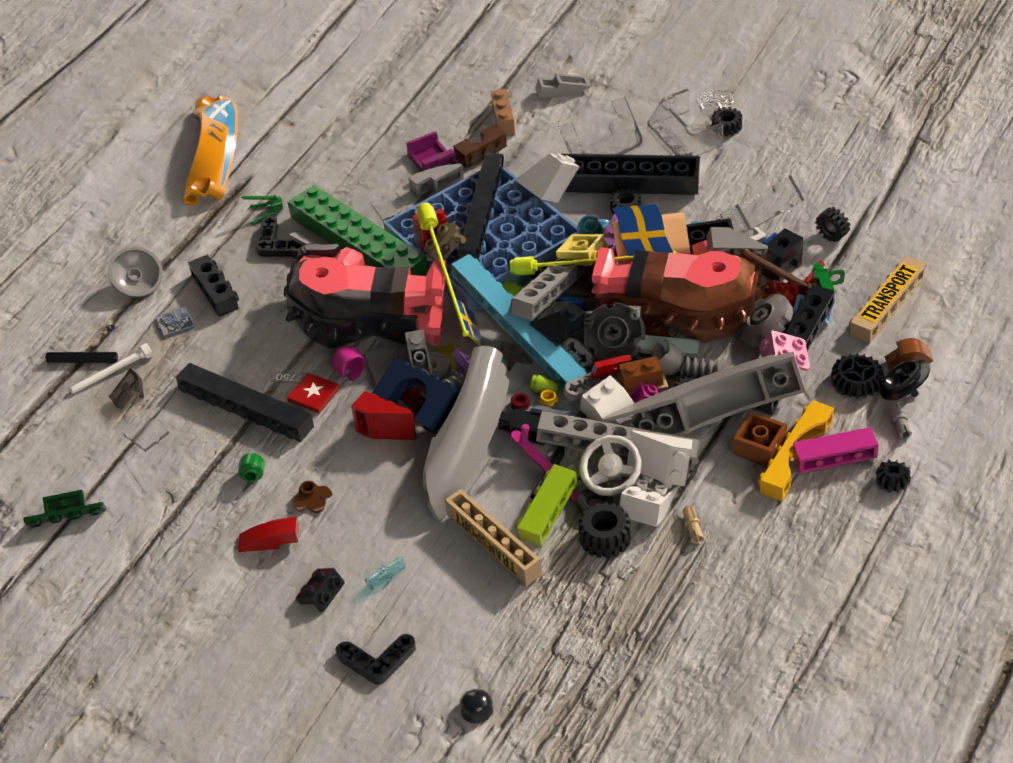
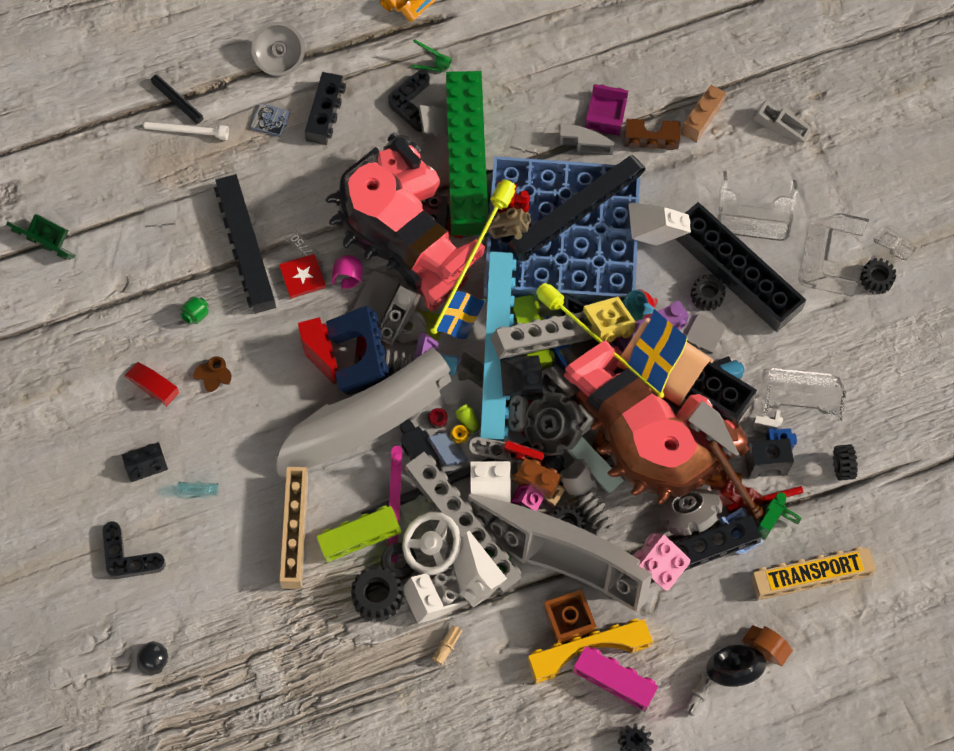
camera: 35 degrees right, 20 degrees up
(128, 386) = (175, 159): clear smoke slope -> none
(857, 375) = (716, 628): black gear -> none

